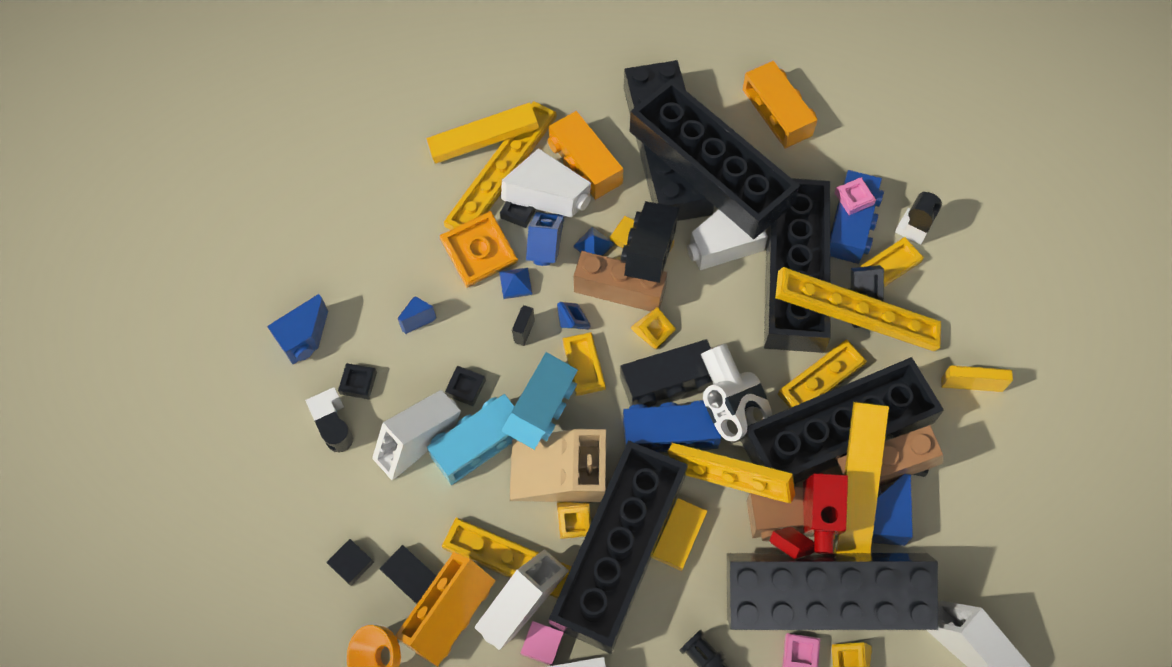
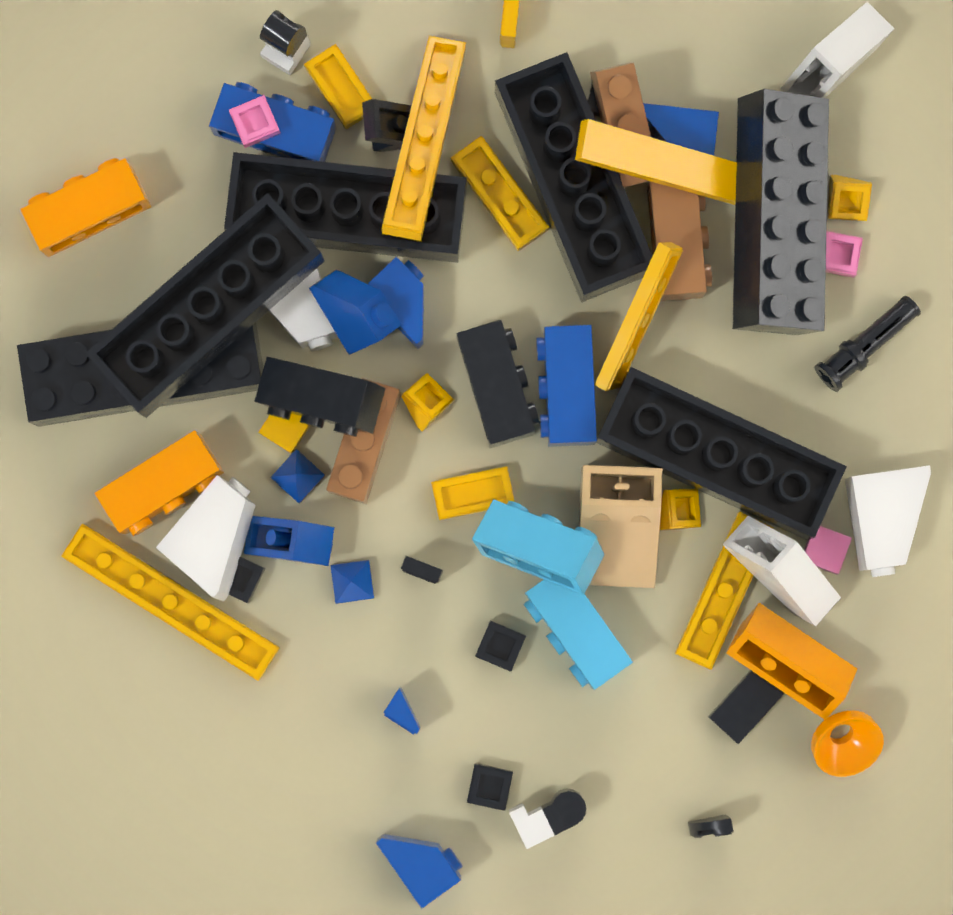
camera: 90 degrees left, 20 degrees up
(313, 549) = (716, 825): none -> black tile
(350, 562) = (727, 780): black tile -> none
(409, 433) = (569, 704): white slope -> none
(478, 249) = (303, 631): light orange tile -> none
(482, 133) = (116, 628): yellow tile -> none
(572, 316) = (409, 505): blue slope -> none
(679, 534) = (700, 380): yellow tile -> none
(718, 266) = (354, 310): none -> blue slope
(730, 306) = (405, 295): none -> blue slope
(732, 393) = (536, 305): white connector -> none
(792, 542) = (728, 250): red tile -> none
(829, 496) = (695, 209): red torso -> none

